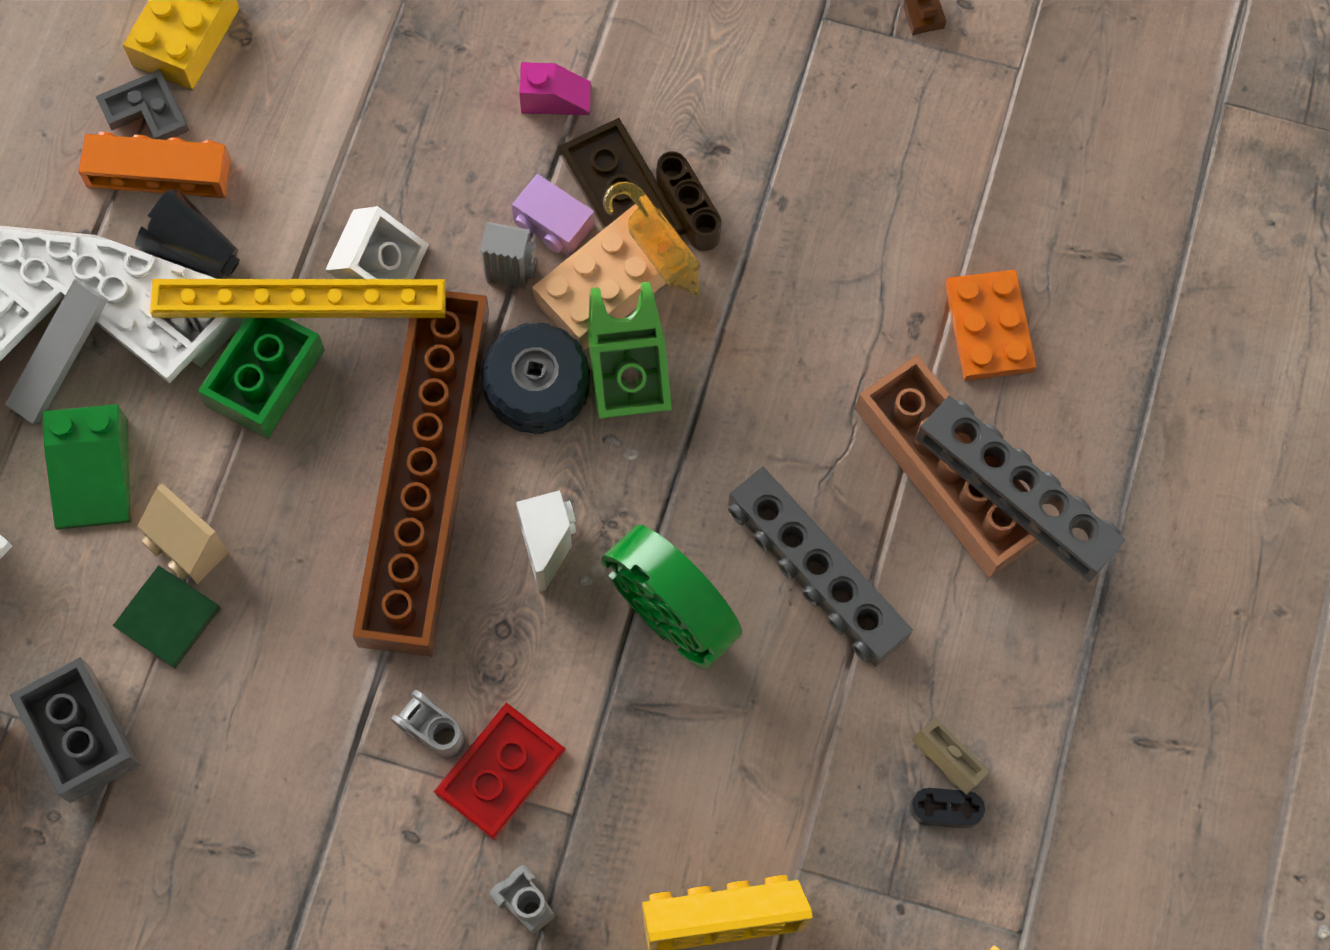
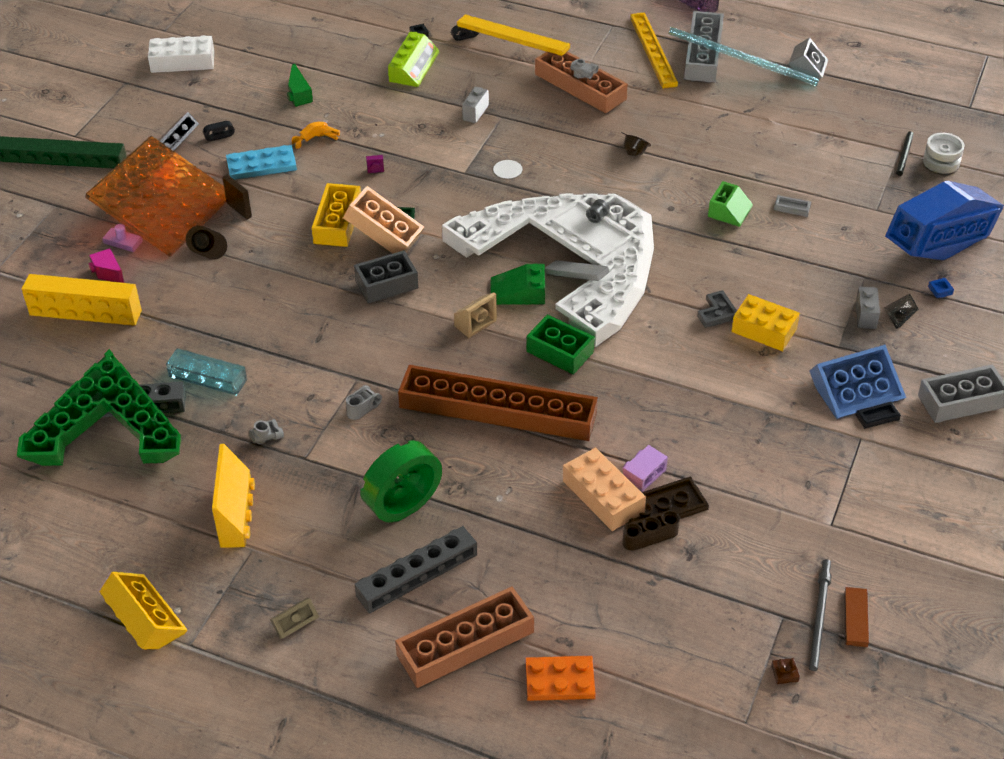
camera: 100 degrees right, 25 degrees down
(154, 165) = (682, 312): orange brick -> none
(166, 616) = (437, 313): dark green tile -> none
(186, 237) = (638, 318): black cone -> none
(298, 298) = (593, 352): yellow tile -> none
(376, 248) = (624, 394): white slope -> none
(499, 771) = (334, 430): red tile -> none
(508, 255) = (617, 440): light grey brick -> none
(536, 378) = (543, 451): black wheel -> none
(547, 533) = (449, 444): white slope -> none
(553, 90) = (726, 474): dark pink slope -> none
(626, 344) = (548, 483): bright green brick -> none
(657, 239) = (615, 496): clear yellow plate -> none
(946, 817) = (262, 615): black beam -> none
(1023, 507) = (425, 651): dark grey brick -> none

